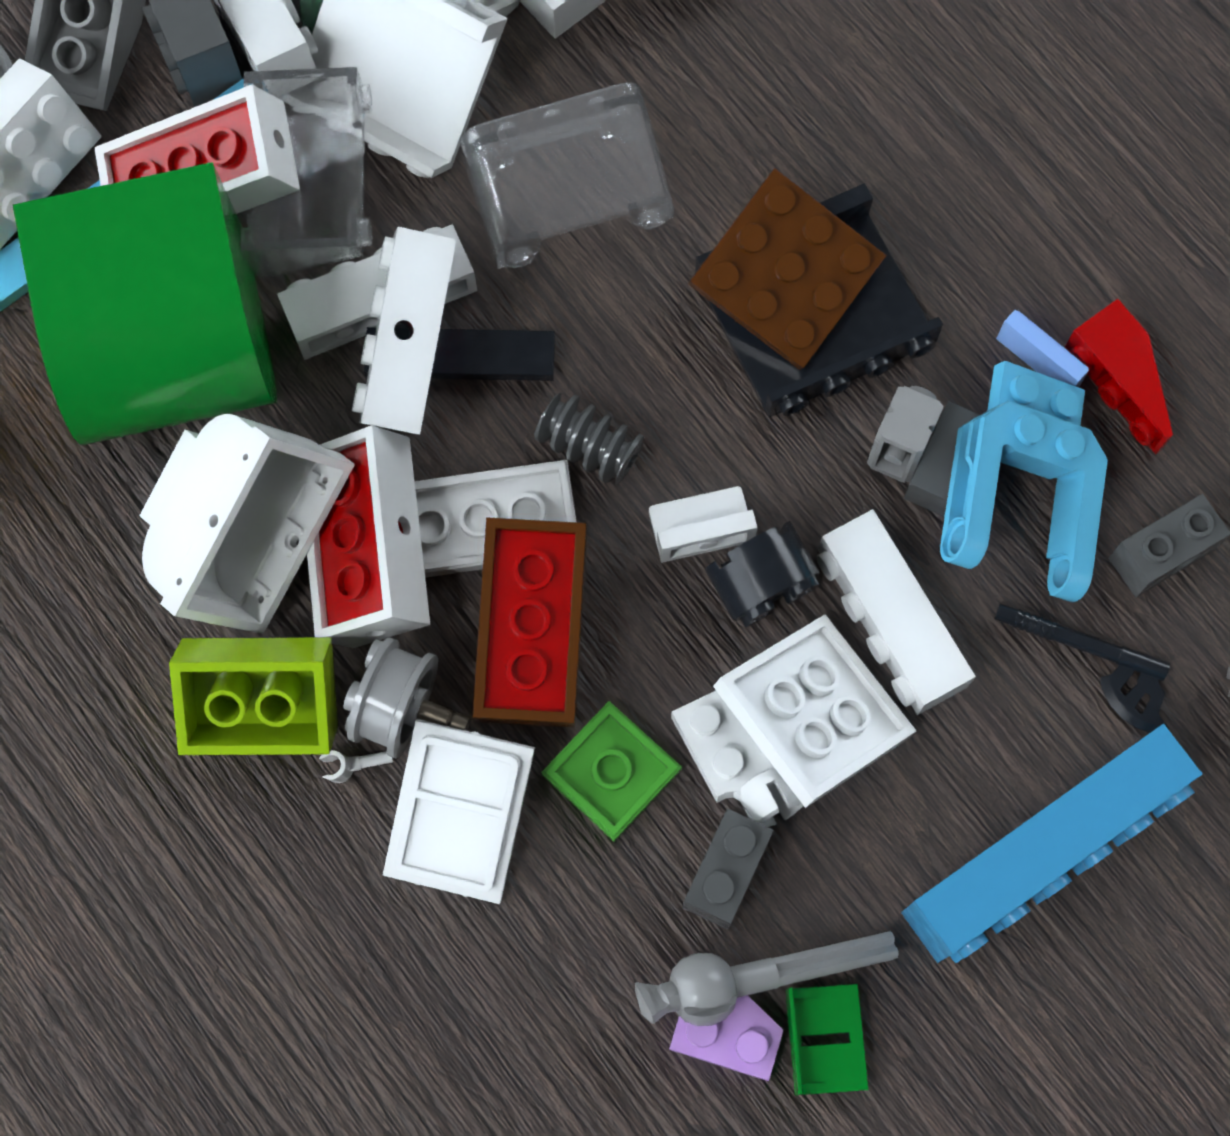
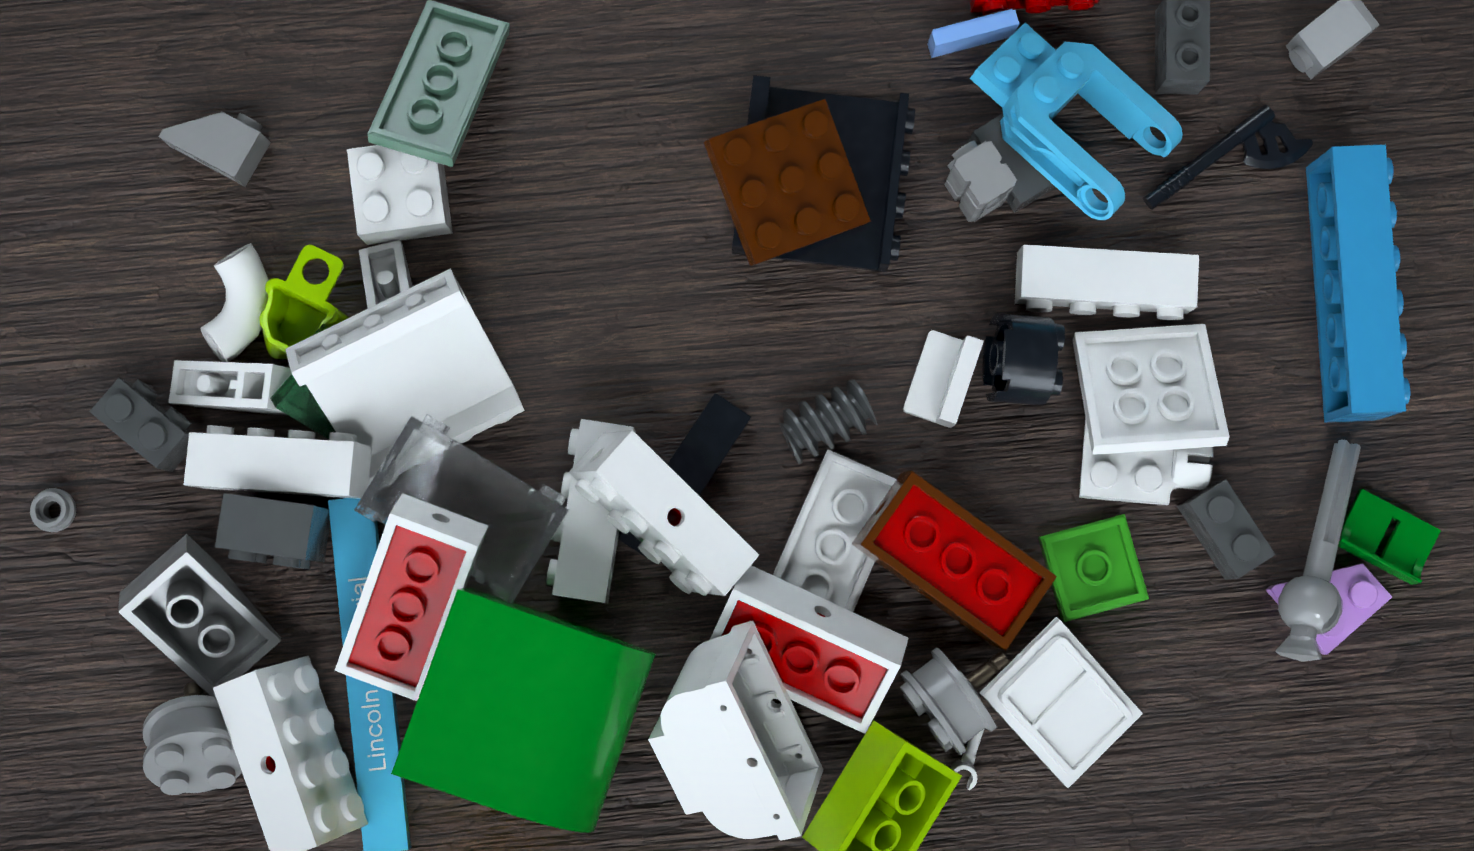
camera: 60 degrees left, 10 degrees up
(565, 170) = (594, 302): clear windscreen -> none

